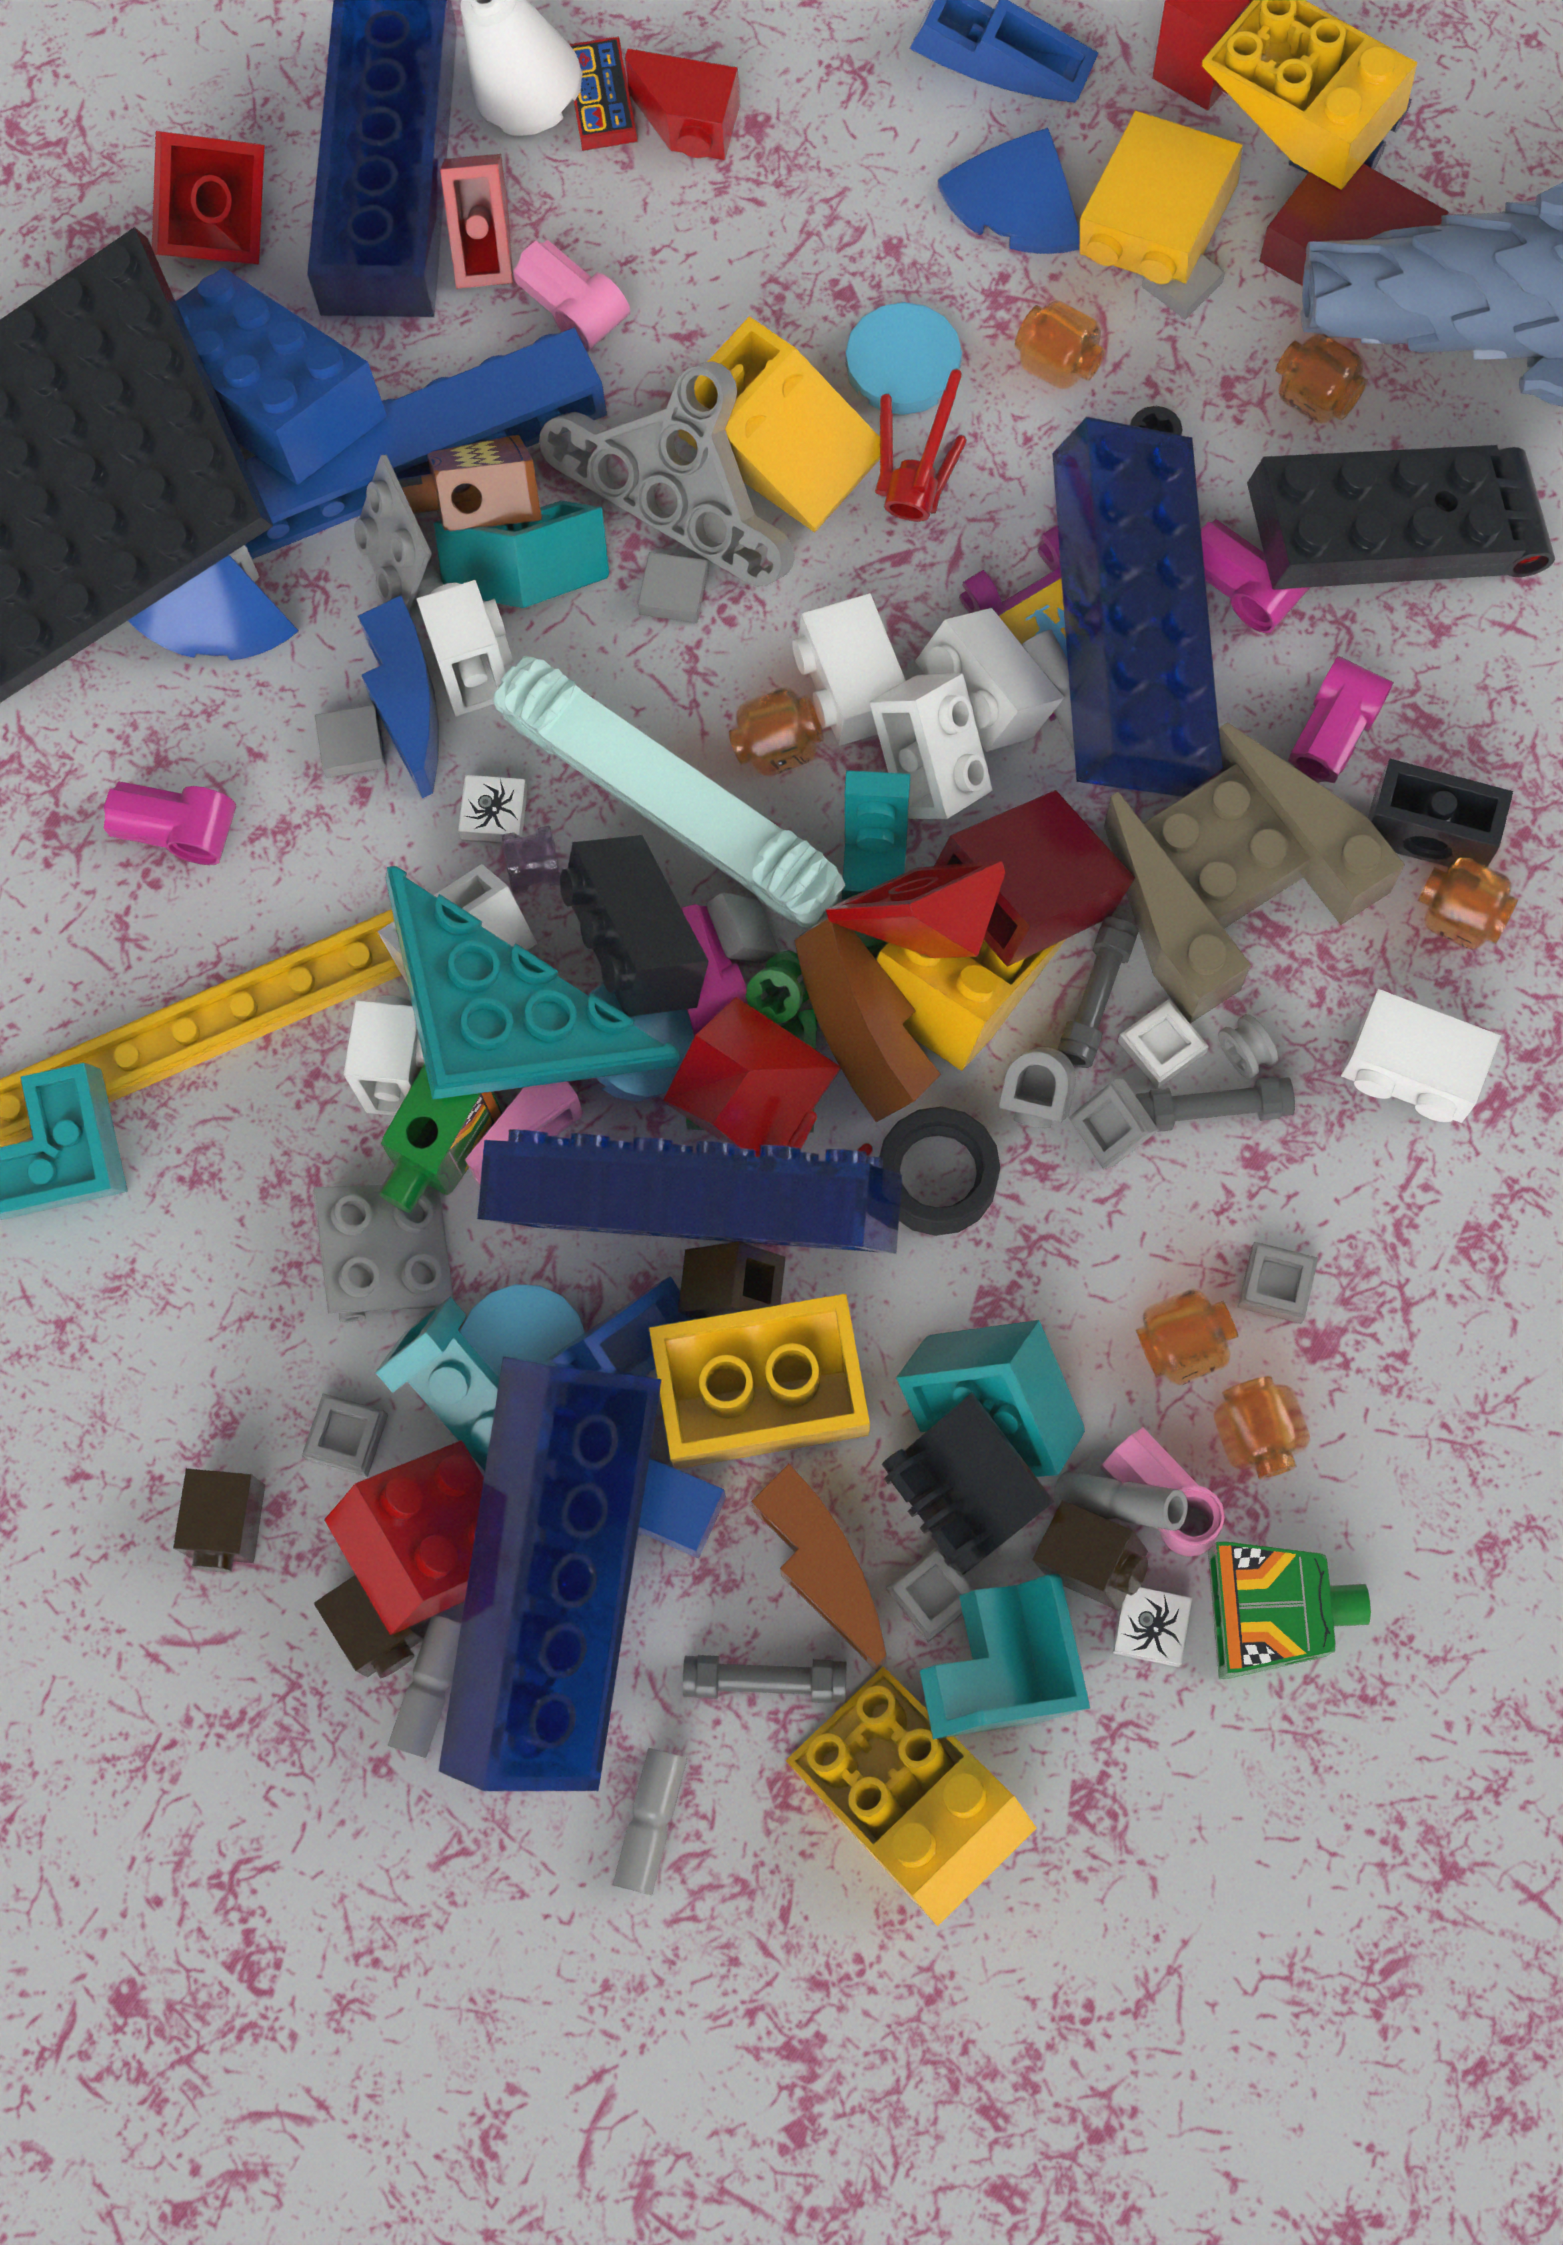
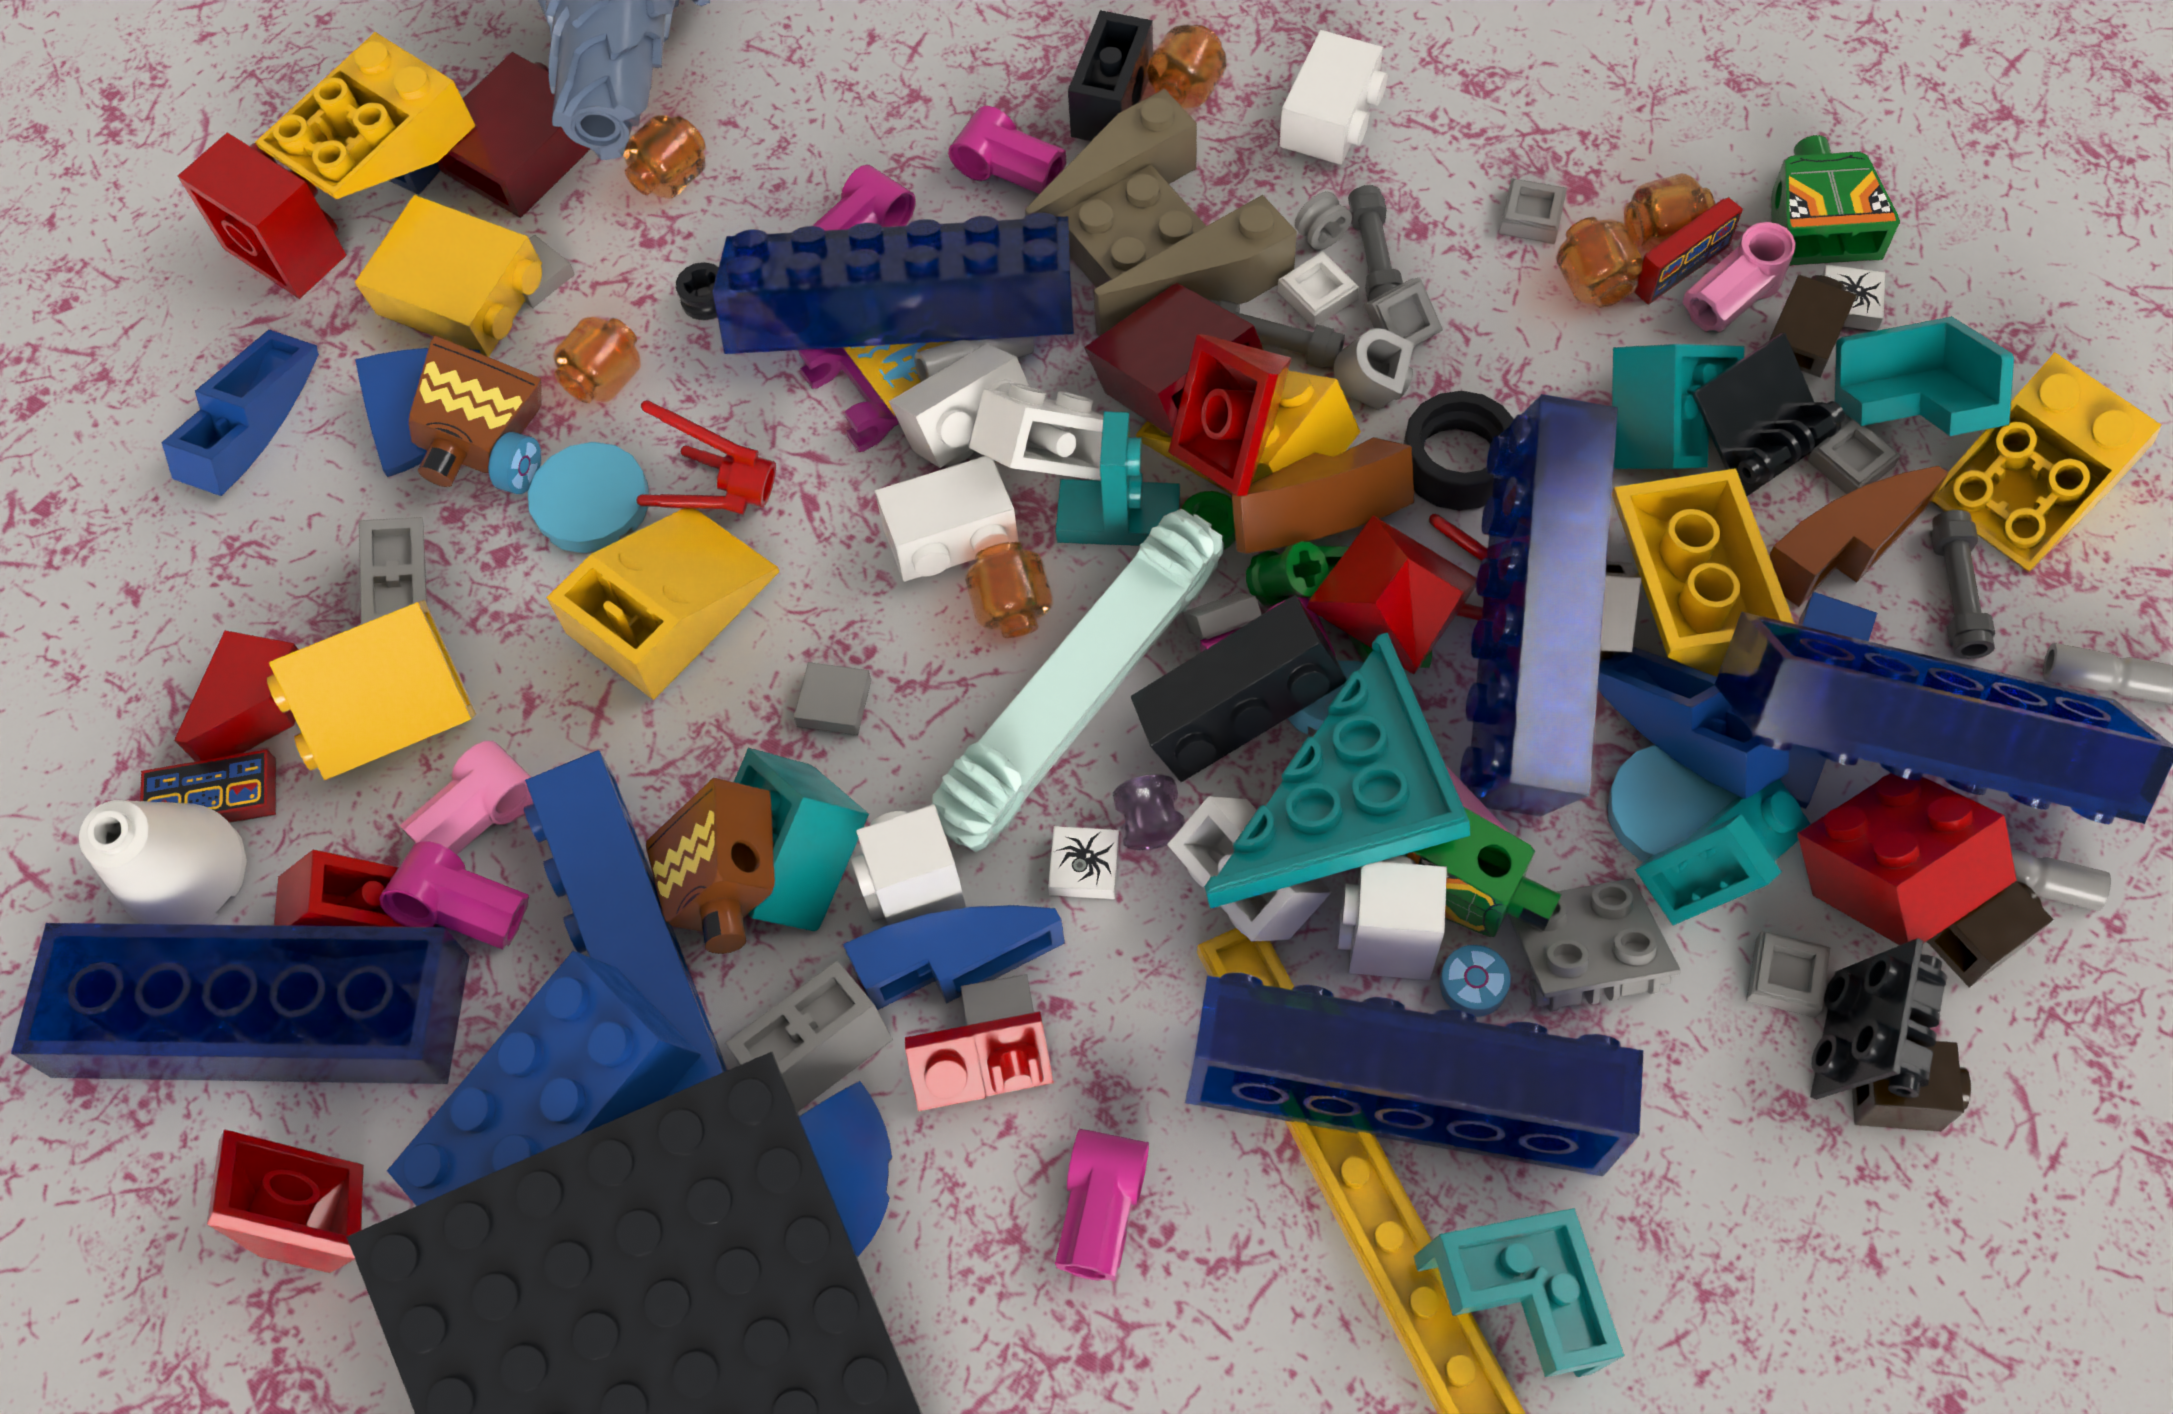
camera: 90 degrees left, 10 degrees down
(237, 1057) = (1415, 1075): none -> clear blue brick
(281, 1489) = (1880, 1023): none -> black hinge
(300, 721) = (978, 1060): none -> plate
(324, 579) = (815, 1034): none -> light grey hinge
(354, 1147) = (1475, 980): none -> dark azure tile
(394, 540) = (766, 955): light grey hinge -> none
(478, 280) = (438, 889): none -> dark pink piece
(673, 195) = (370, 690): none -> yellow brick
(700, 486) = (693, 702): light grey beam -> none
(795, 194) = (391, 565): none -> light grey hinge
(935, 285) = (514, 462): none -> dark azure tile
(986, 233) = (466, 407): none -> dark orange torso
(1126, 1501) = (1762, 292): light grey piece -> none
(1207, 1438) = (1687, 250): none -> red tile
(1399, 516) = (818, 101): black hinge -> none

